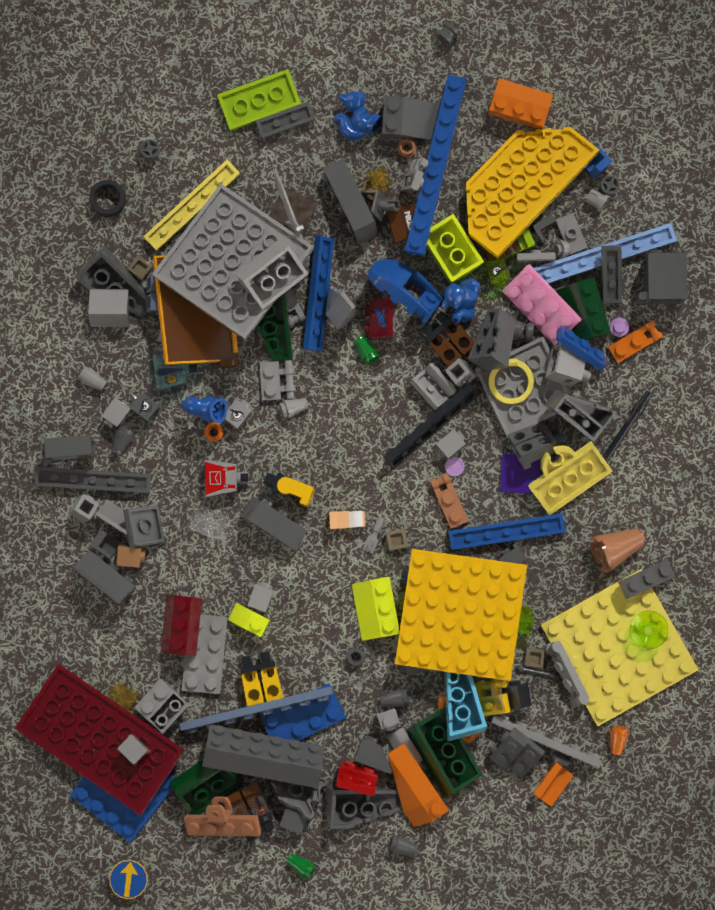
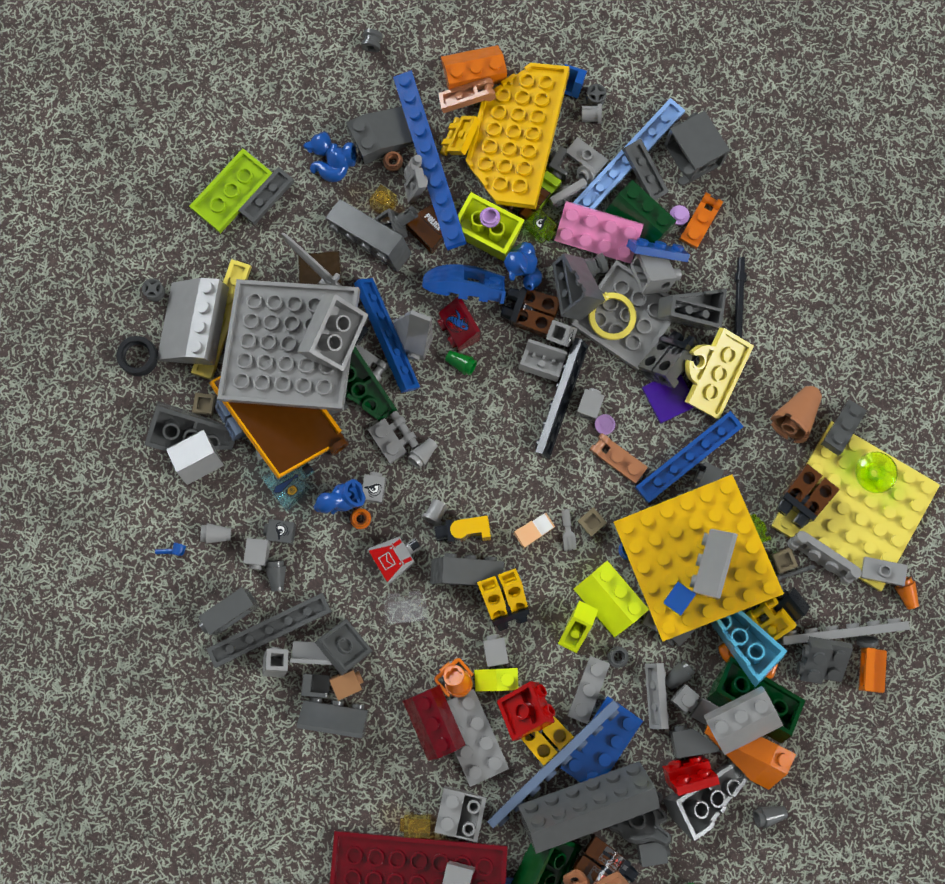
camera: 35 degrees left, 5 degrees down
(56, 375) = (178, 549): none -> blue hand
(167, 195) = (193, 321): none -> light grey slope
(217, 601) = (457, 681): none -> orange piece
(257, 655) = (526, 710): none -> red plate
(275, 461) = (435, 512): none -> light grey bush
(289, 568) = (506, 607): none -> yellow hips
(317, 669) = (588, 689): none -> light grey plate
(337, 615) = (578, 626): none -> neon yellow slope
(368, 704) = (656, 696): none -> light grey plate
(420, 760) = (743, 720): none -> light grey slope
(425, 637) = (679, 598): none -> blue panel
(455, 244) = (489, 217): none -> lavender plate
(467, 625) = (713, 563): none -> light grey slope
(473, 158) = (459, 135): none -> yellow plate
(500, 126) = (467, 95): none -> nougat plate
(574, 617) = (802, 501): none -> reddish brown hips
(606, 711) = (884, 571): none -> light grey plate

